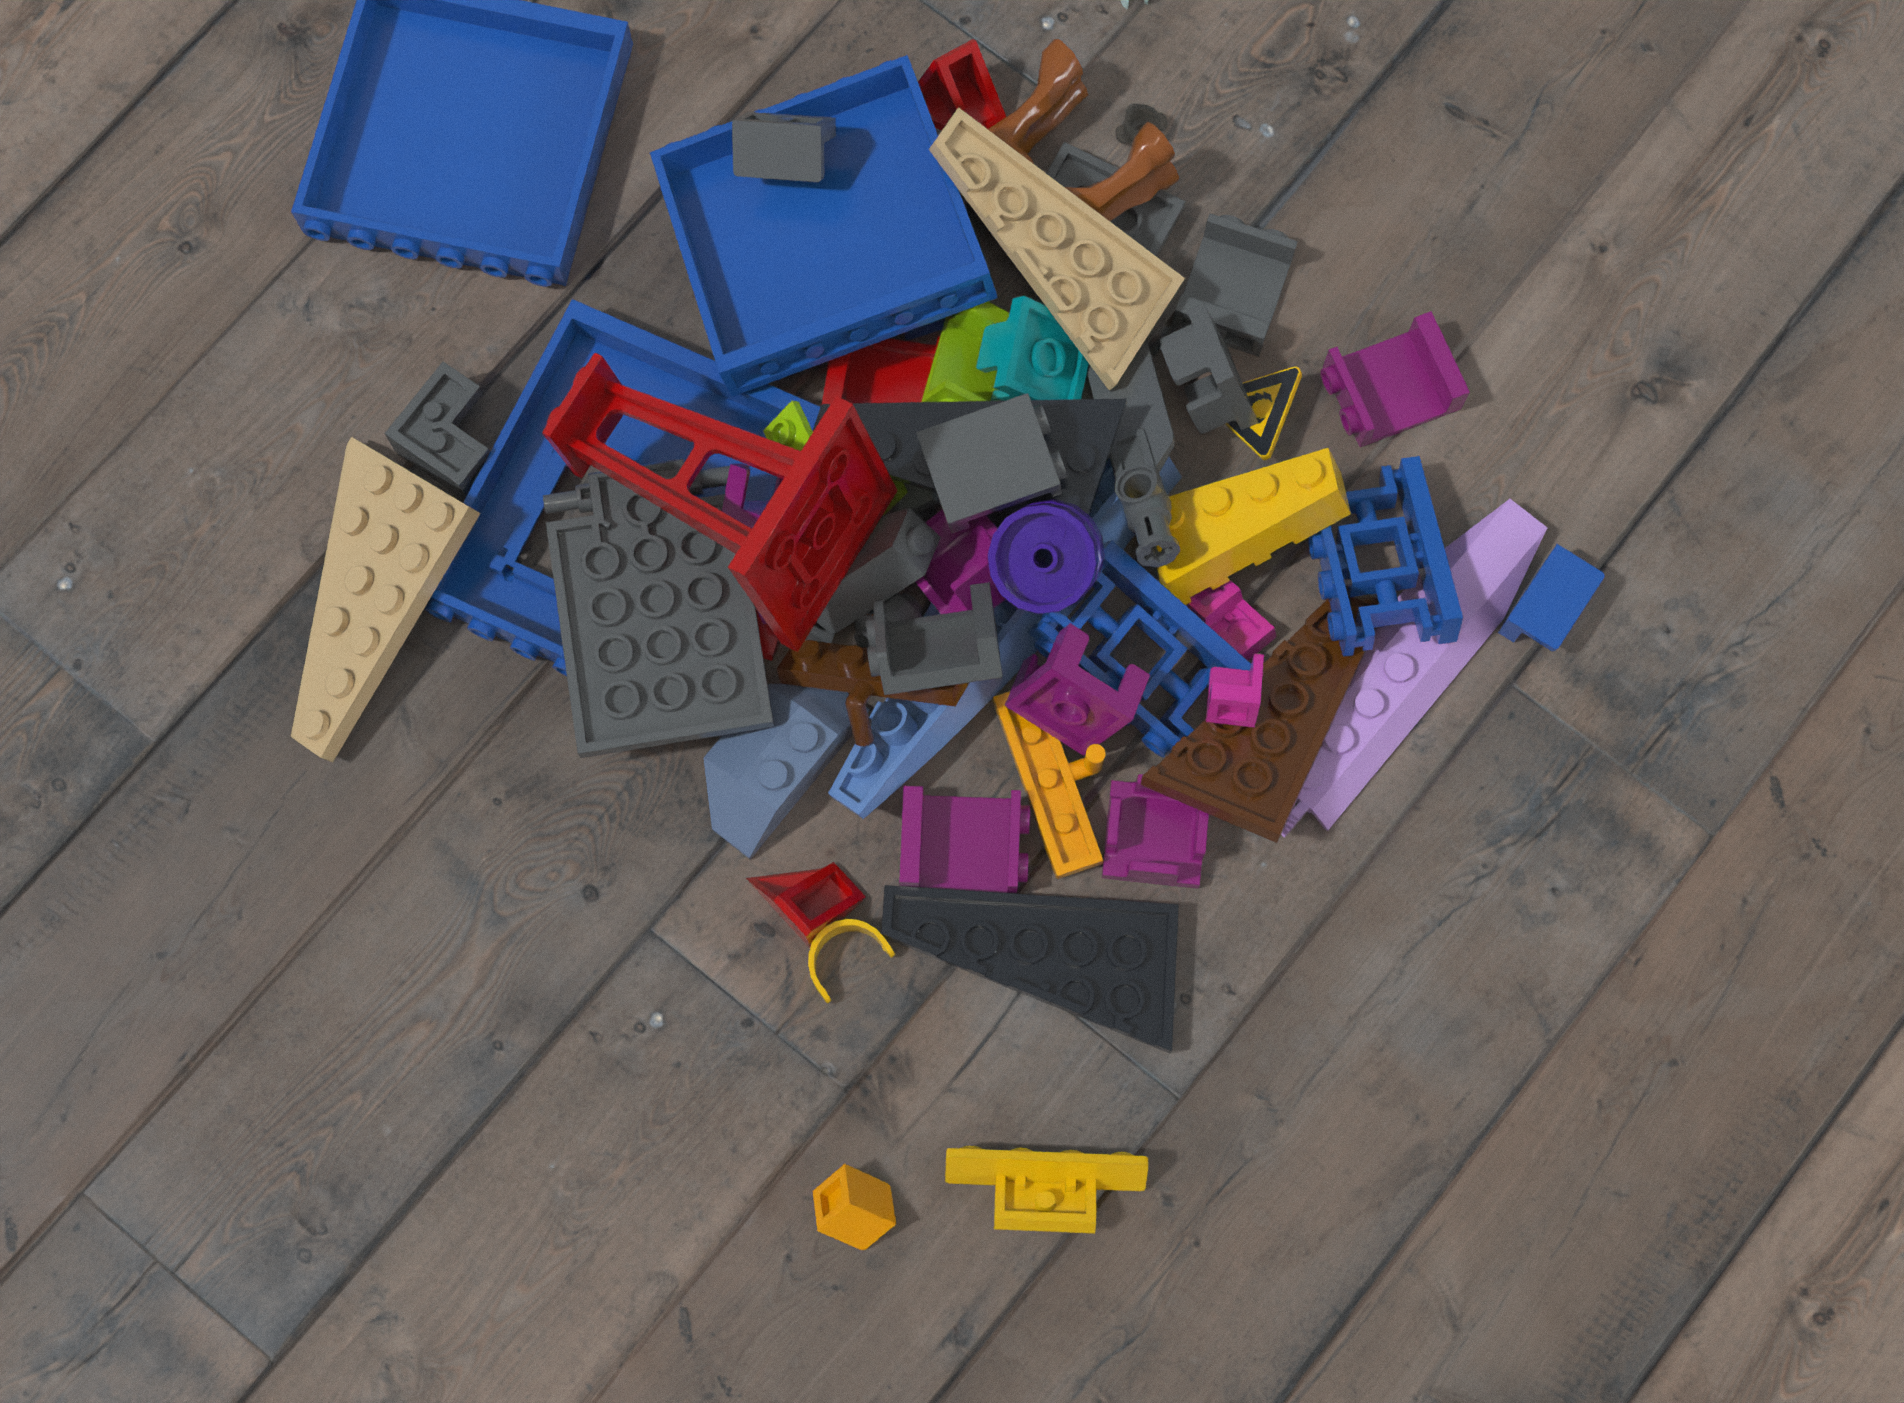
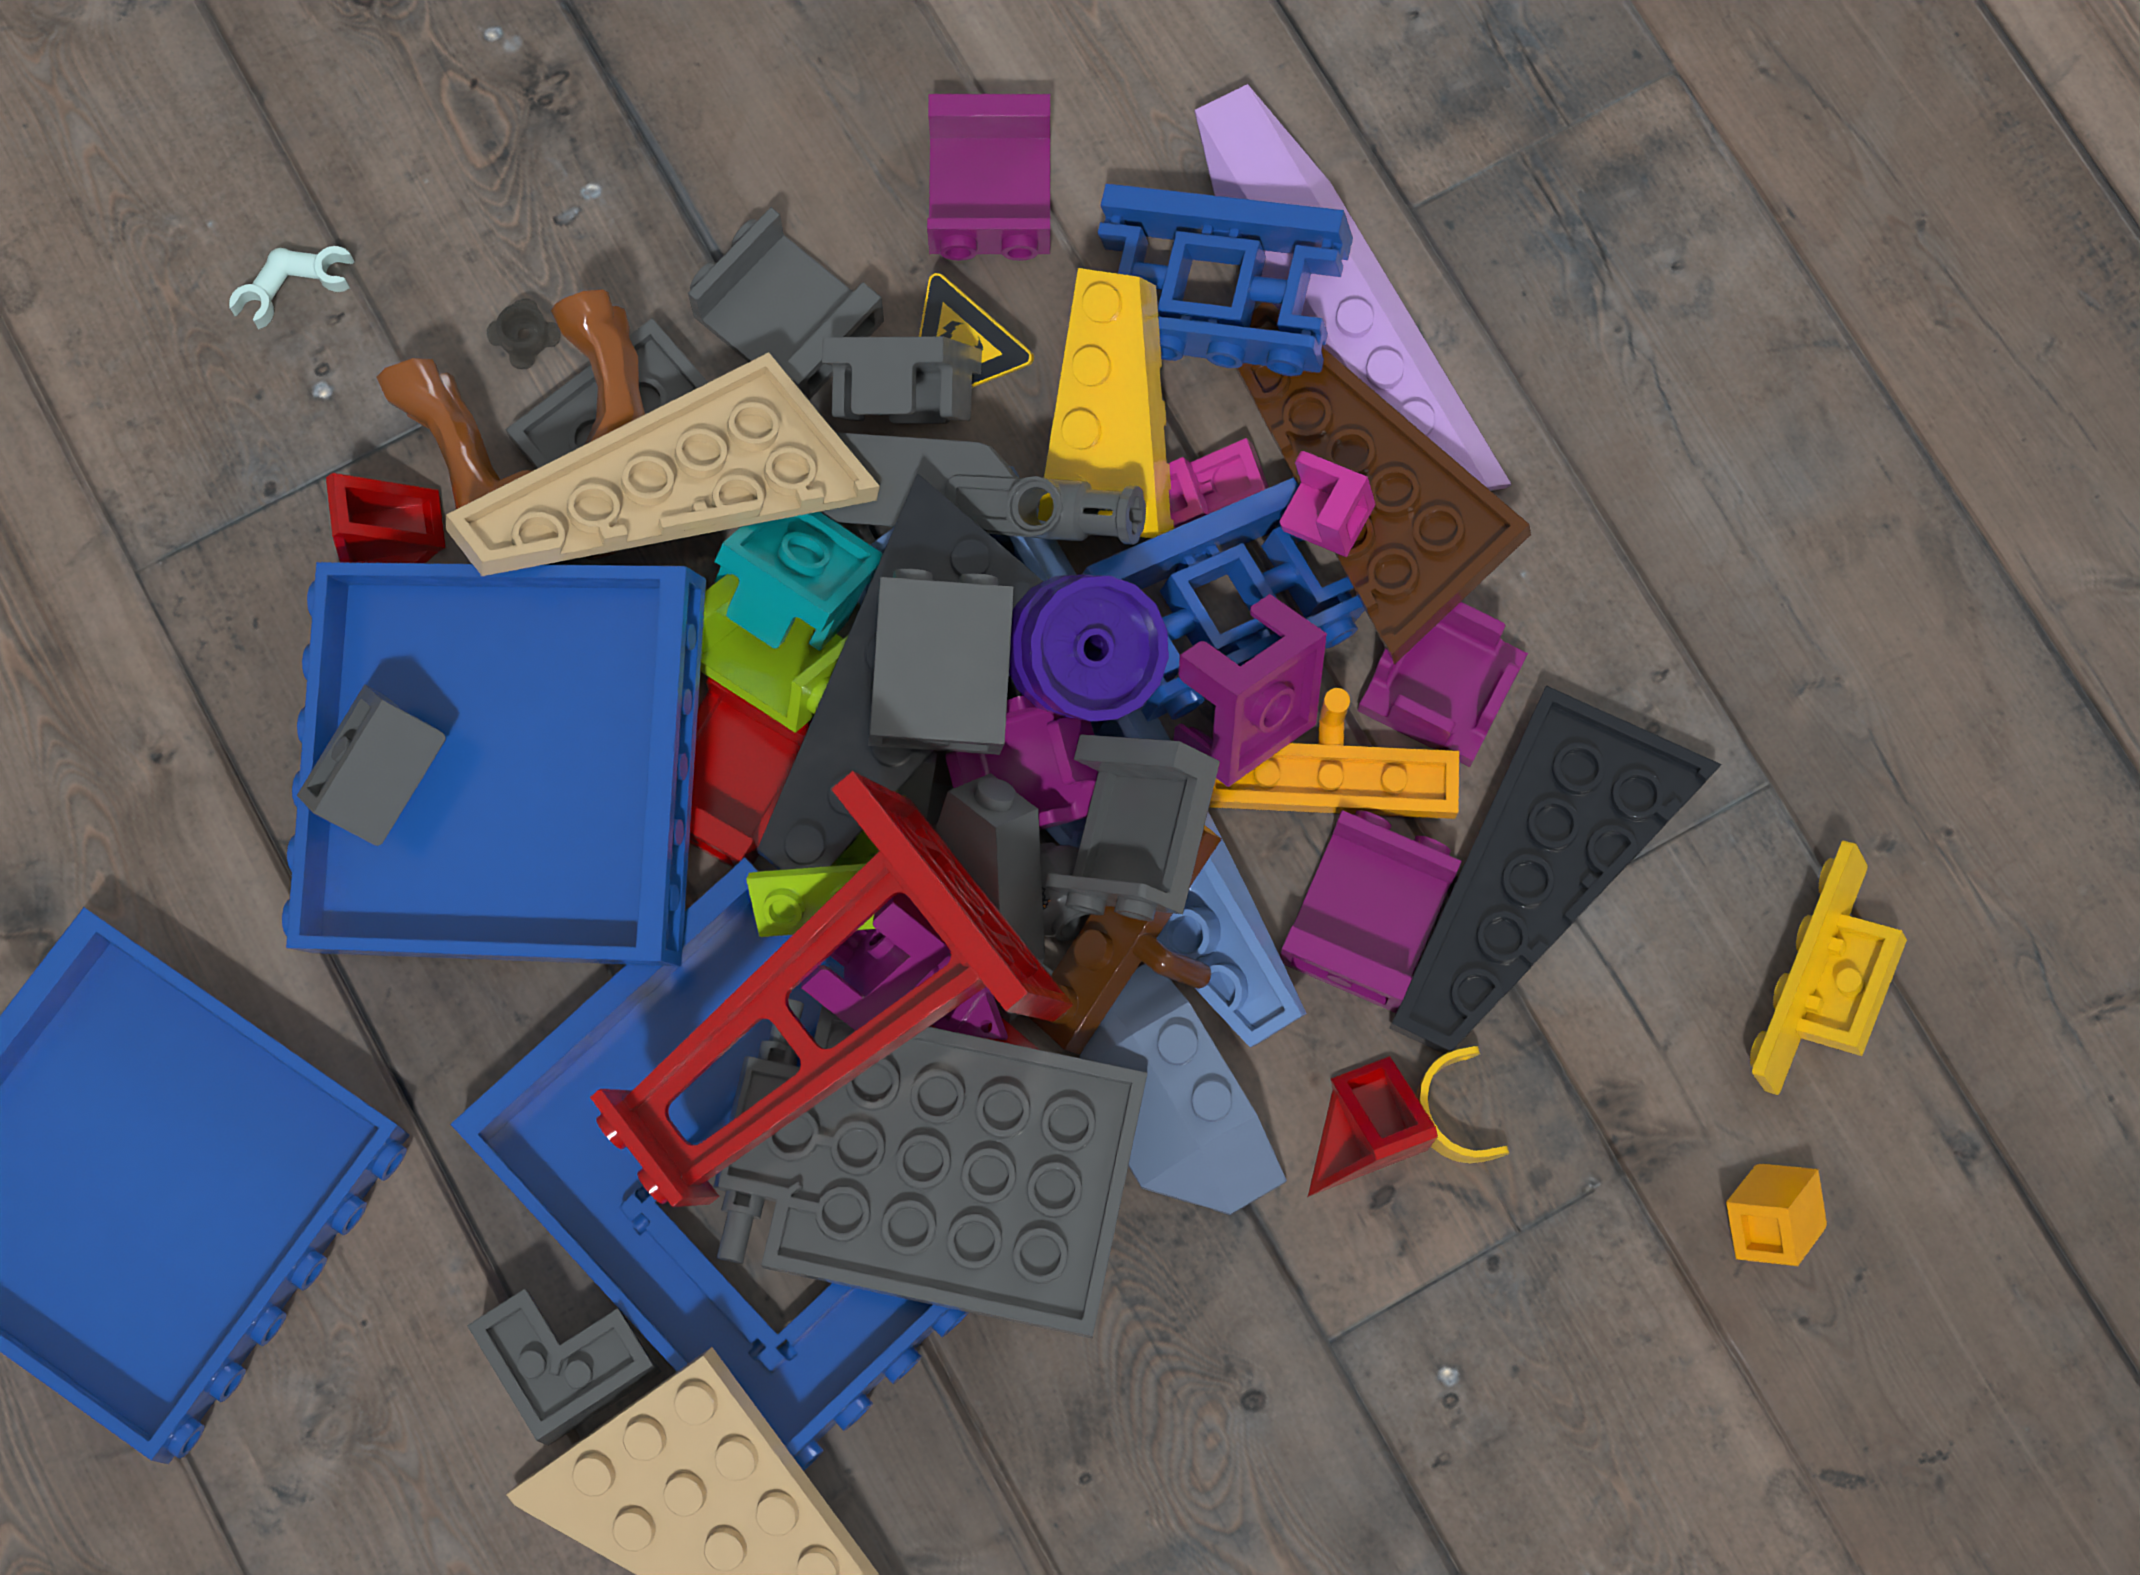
camera: 70 degrees left, 0 degrees up
(1553, 599) = (1337, 116): blue panel -> none

